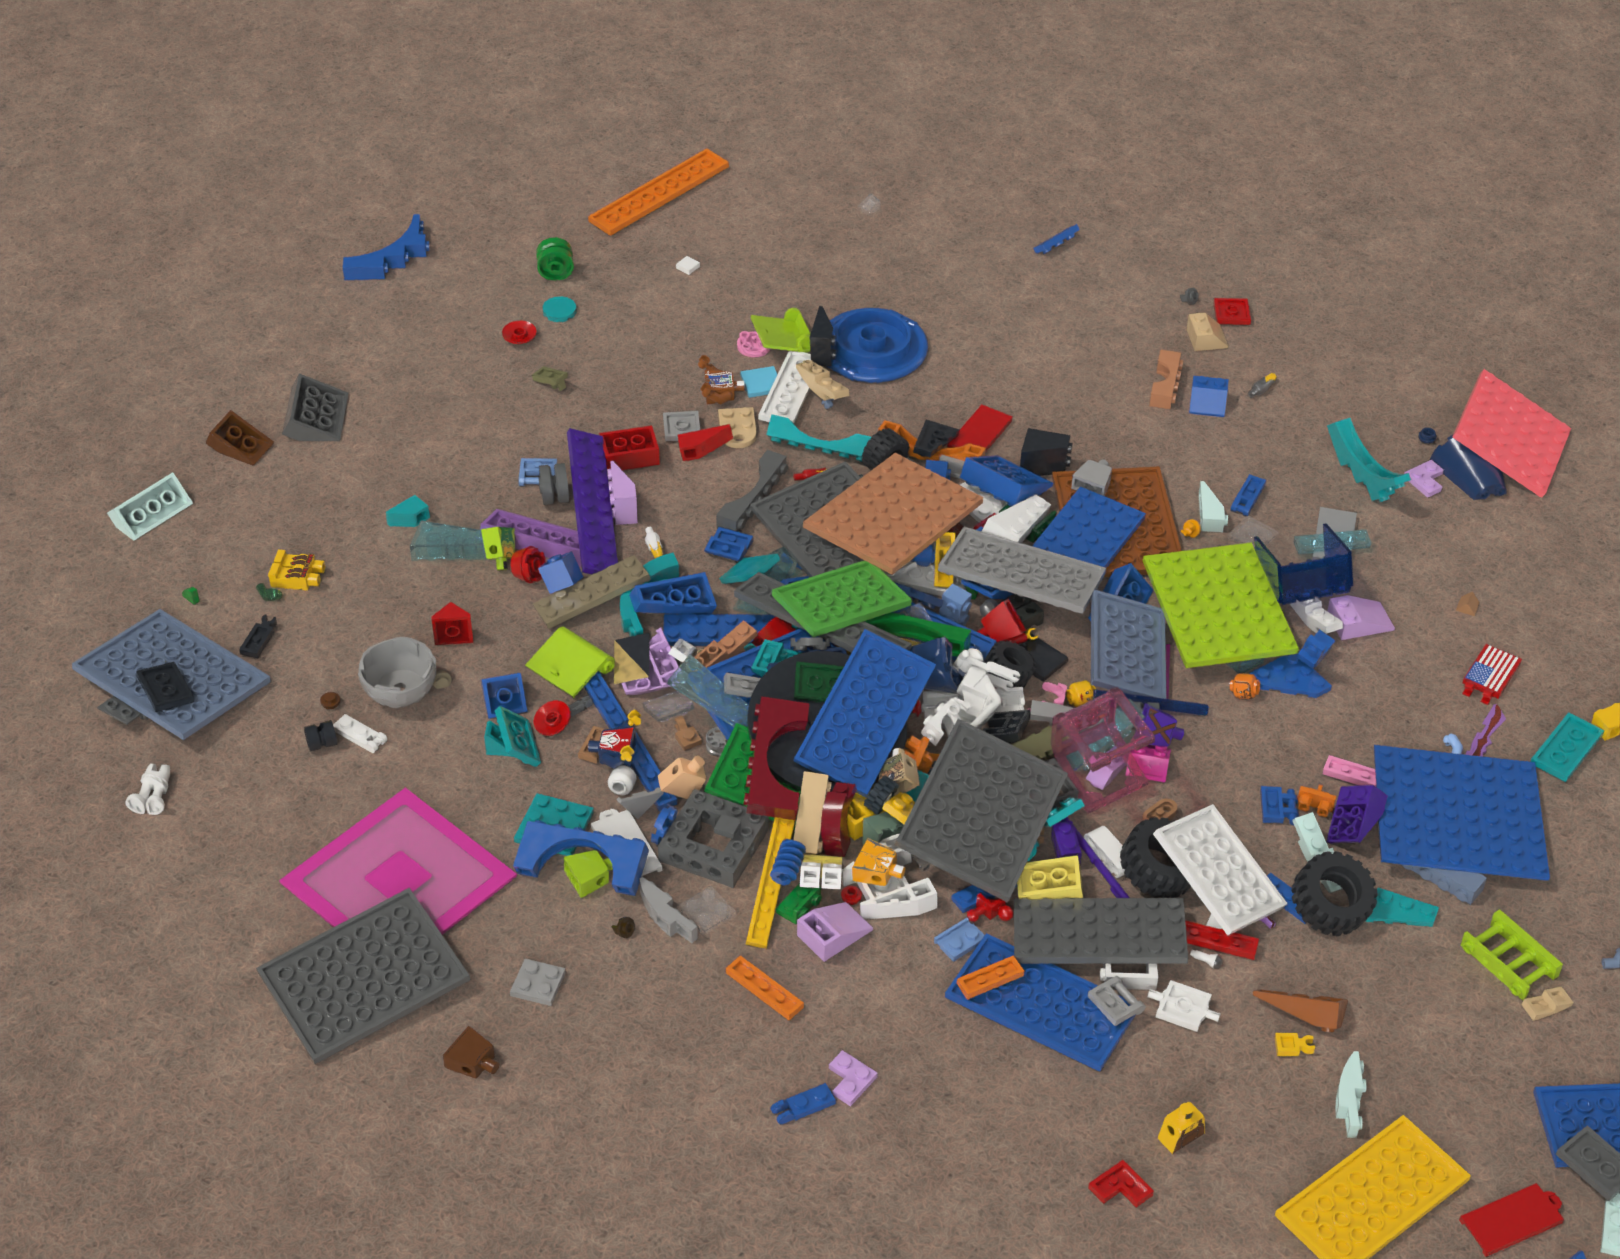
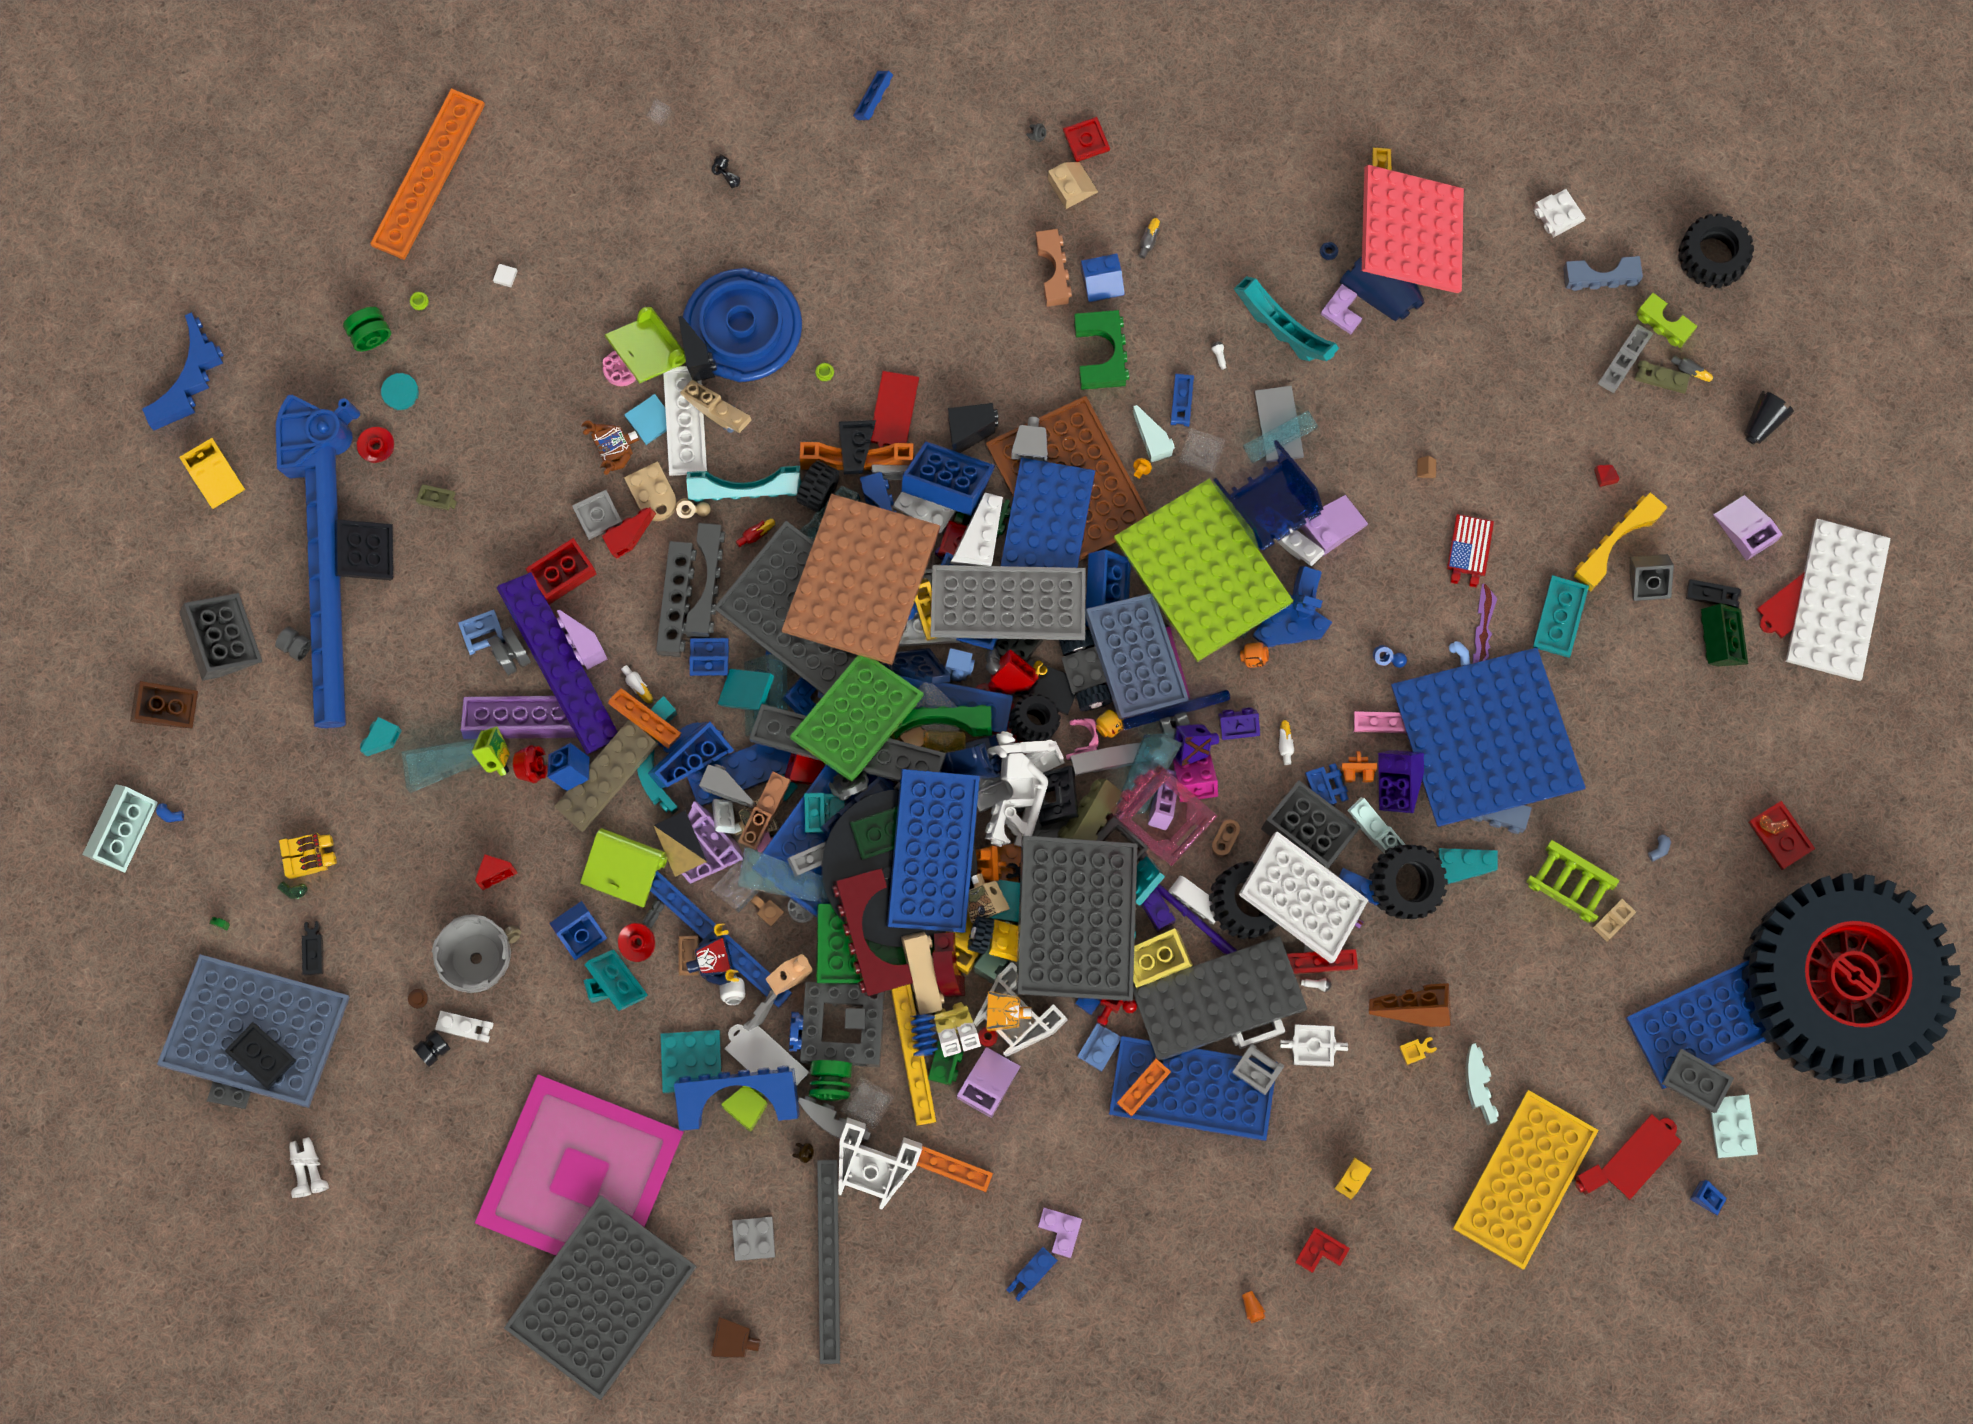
camera: 20 degrees left, 30 degrees up
(195, 512) = (168, 816): none -> blue arm
(373, 432) = (291, 642): none -> dark grey wheel
(374, 310) = (212, 473): none -> yellow slope
(456, 317) = (308, 448): none -> blue piece
(469, 388) = (363, 550): none -> black plate
(600, 1025) = (828, 1262): none -> dark grey plate
(607, 260) = (419, 301): none -> lime plate
(646, 556) = (644, 718): none -> orange plate
(679, 871) = (830, 1079): none -> green wheel
(686, 953) = (871, 1169): none -> white wedge
(693, 625) = (720, 783): none -> light grey slope
(723, 490) = (676, 552): none -> dark grey brick
(775, 447) = (702, 509): none -> tan plate
(911, 259) = (721, 160): none -> black piece
(929, 391) = (824, 372): none -> lime plate
(1026, 1213) = (1253, 1308): none -> orange cone
(1073, 647) = (1085, 673): none -> plate
(1187, 458) = (1106, 325): none -> green arch
(1209, 732) = (1239, 724): none -> dark purple bracket
(1250, 760) = (1286, 745): none -> white piece
(1255, 825) = (1311, 824): none -> dark grey slope
(1296, 472) = (1217, 348): none -> white piece
(1388, 733) = (1398, 660): none -> blue plate
(1447, 1218) = (1590, 1180): none -> red brick

